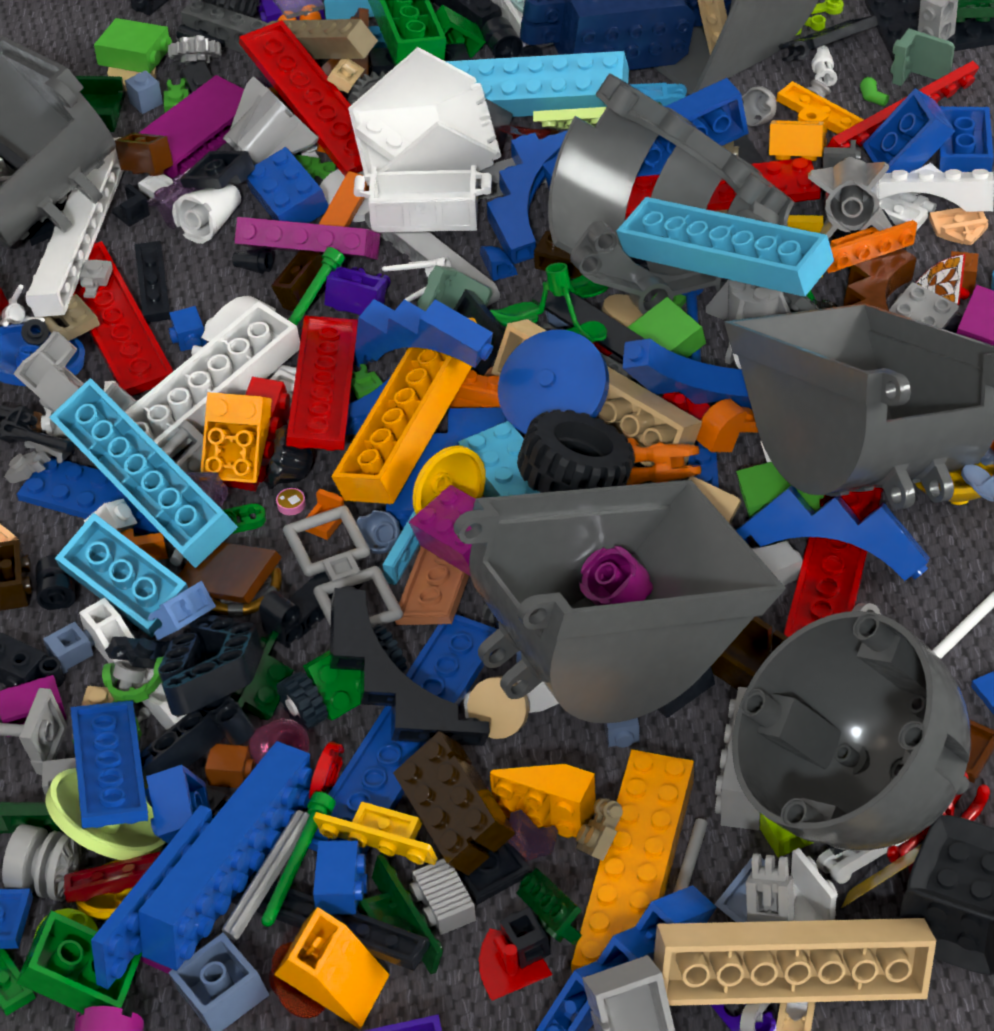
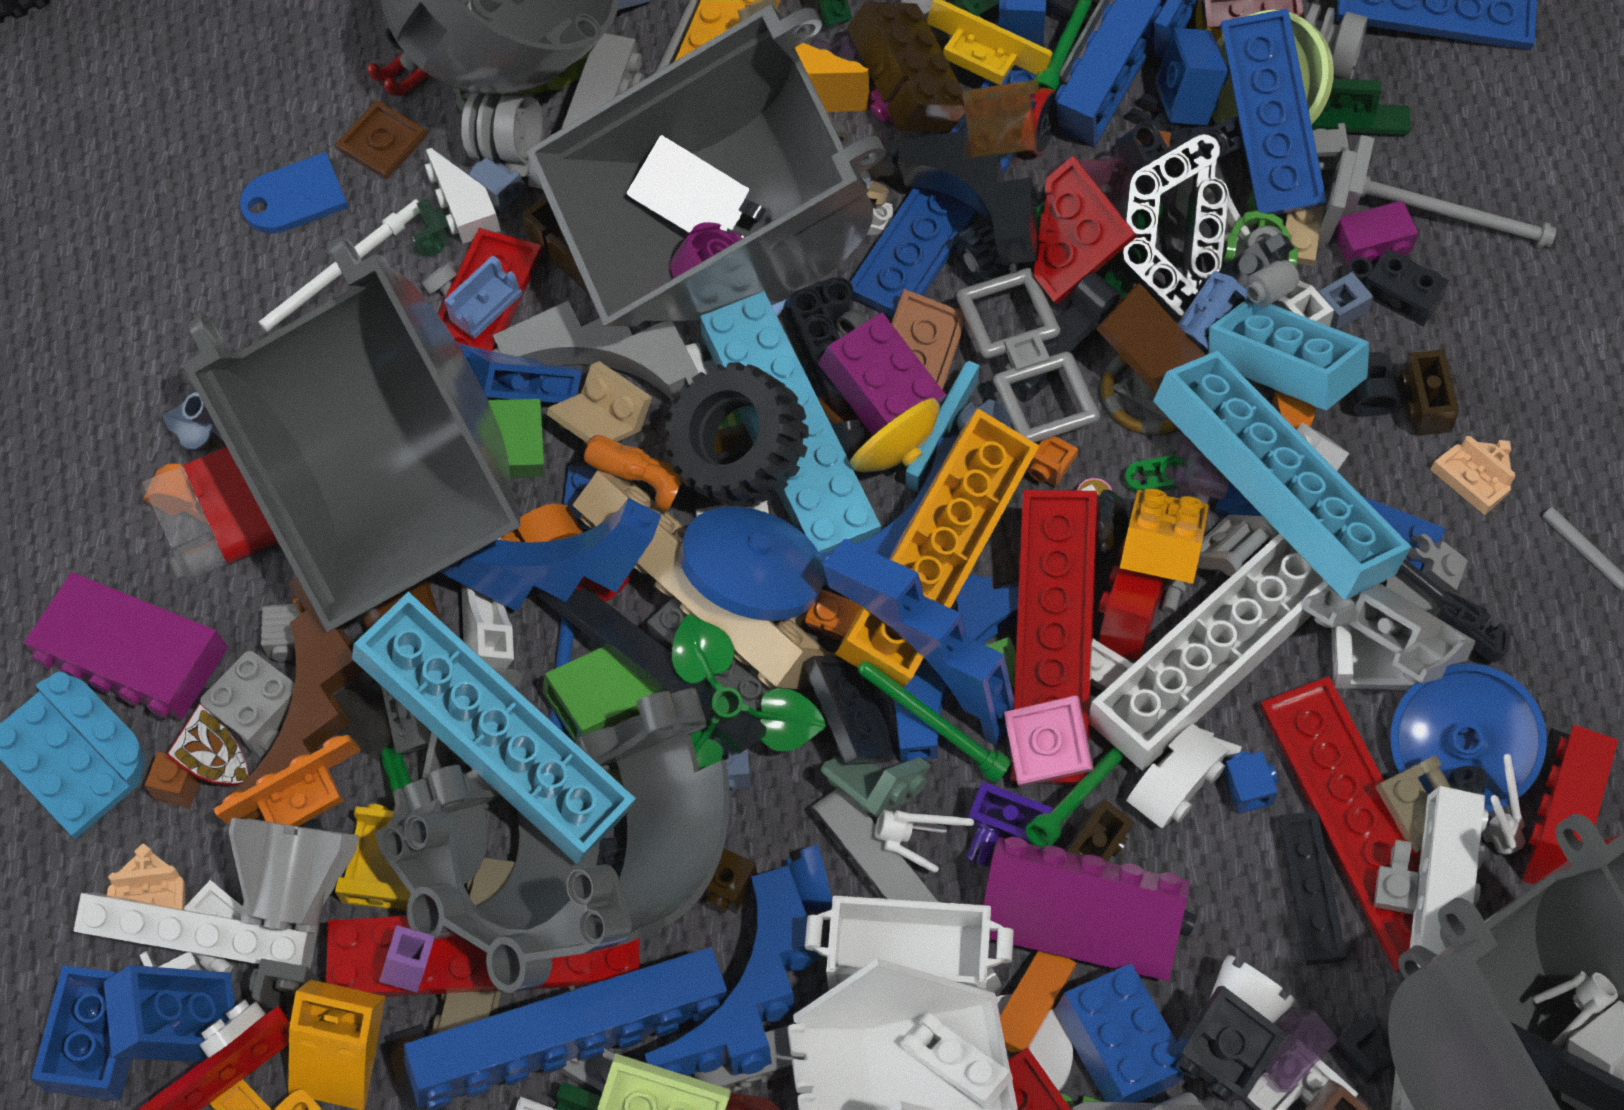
camera: 175 degrees left, 15 degrees up
(56, 719) = (1336, 195): none -> light grey tile
(129, 619) = (1272, 282): none -> light grey brick
(292, 637) = (1076, 230): none -> red plate
(328, 325) = (1048, 741): none -> bright pink tile
(362, 763) = (1001, 118): none -> clear orange bracket
(756, 149) = (407, 958): none -> medium lavender brick
(819, 587) = (482, 297): none -> medium blue hinge
(867, 131) = (221, 1034): none -> white plate

